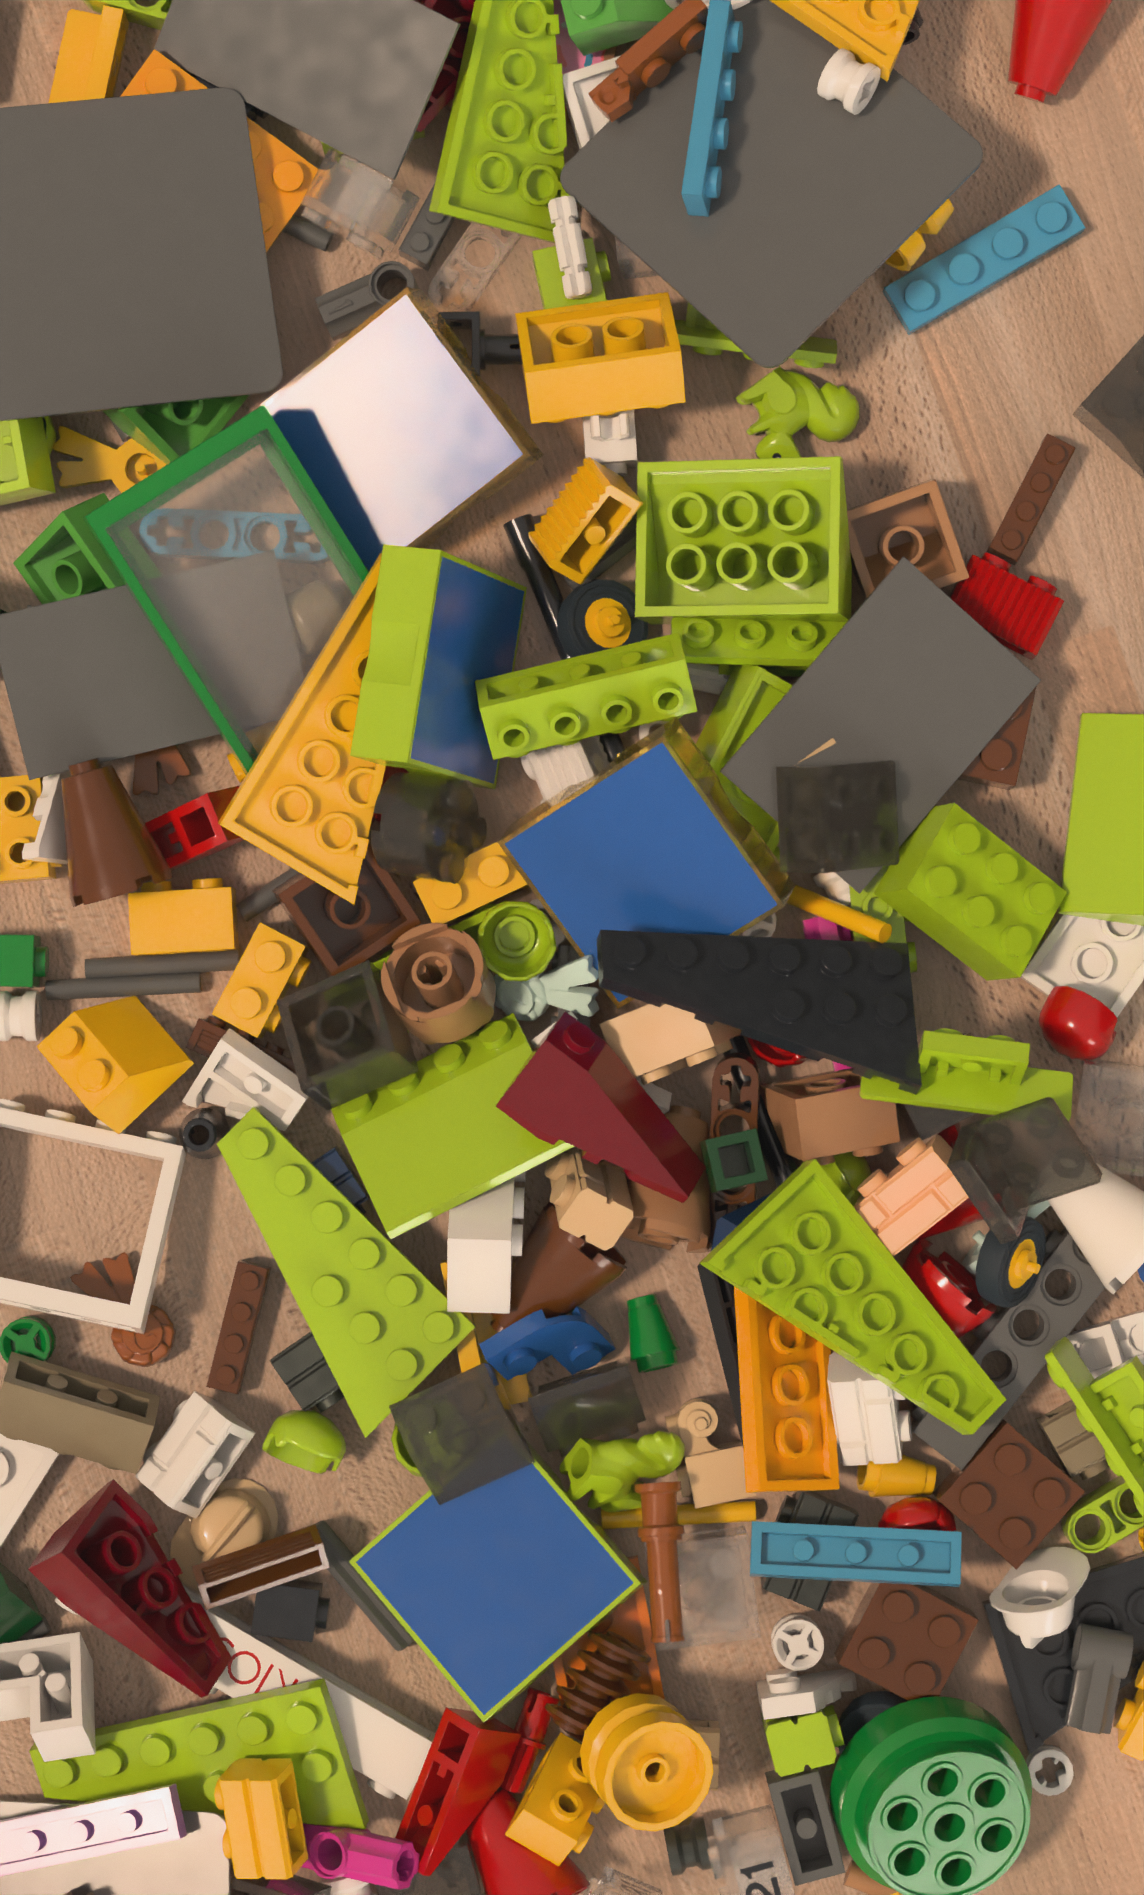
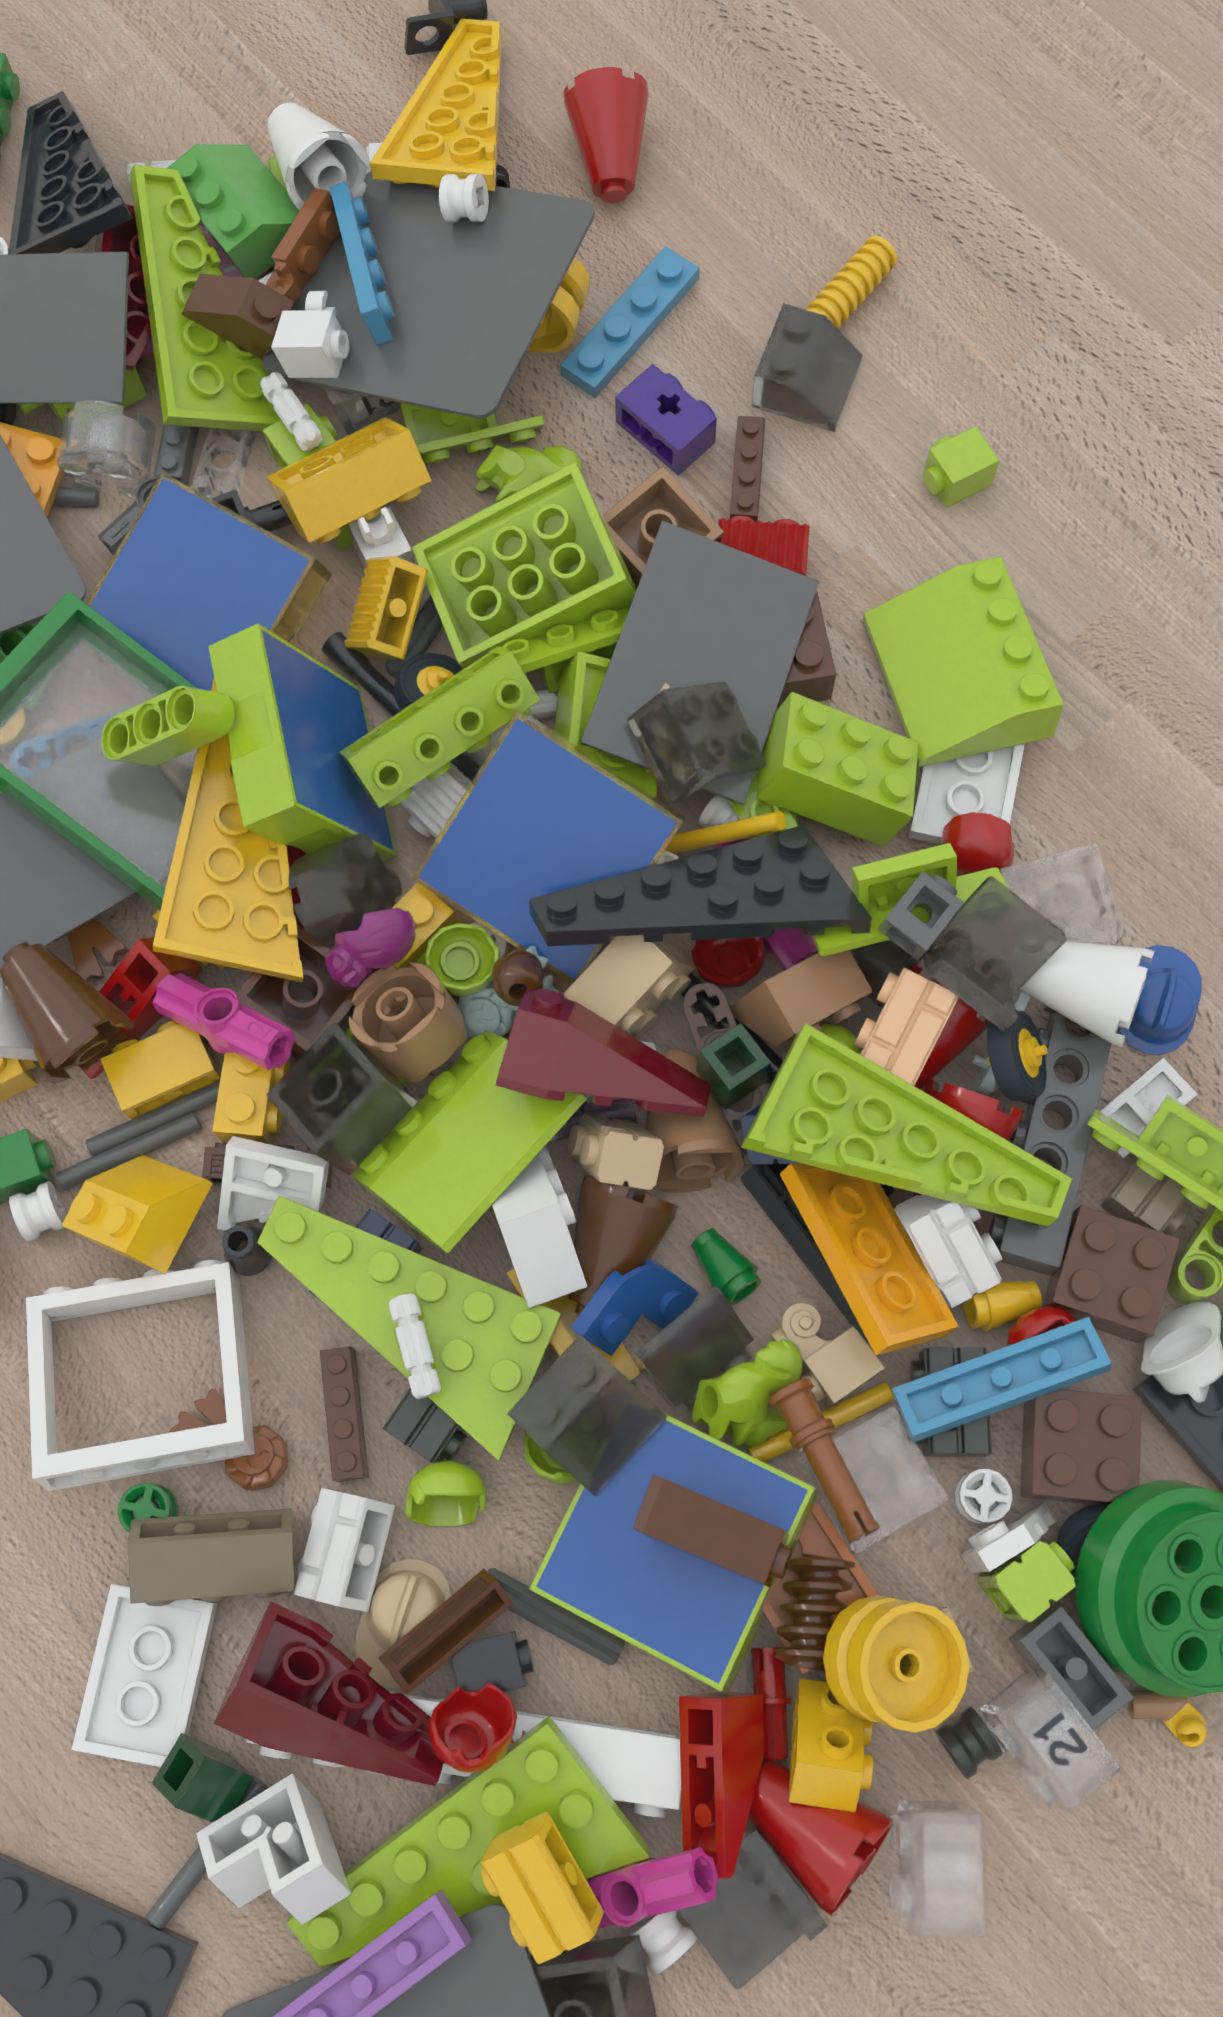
camera: 20 degrees left, 15 degrees down
(253, 1663) = (472, 1728): none -> red hair
(276, 937) = (224, 1021): none -> dark pink piece
(313, 611) = (167, 726): none -> lime beam
(328, 1307) = (414, 1346): none -> white axle
(431, 903) = (378, 943): none -> magenta hair
(531, 1590) = (713, 1532): none -> reddish brown slope
(556, 112) = (237, 310): none -> reddish brown slope
(562, 987) = (515, 974): none -> reddish brown piece
(622, 185) = (311, 340): none -> white brick
(947, 387) = (666, 418): none -> dark purple brick
(963, 1124) = (909, 932): none -> dark grey brick

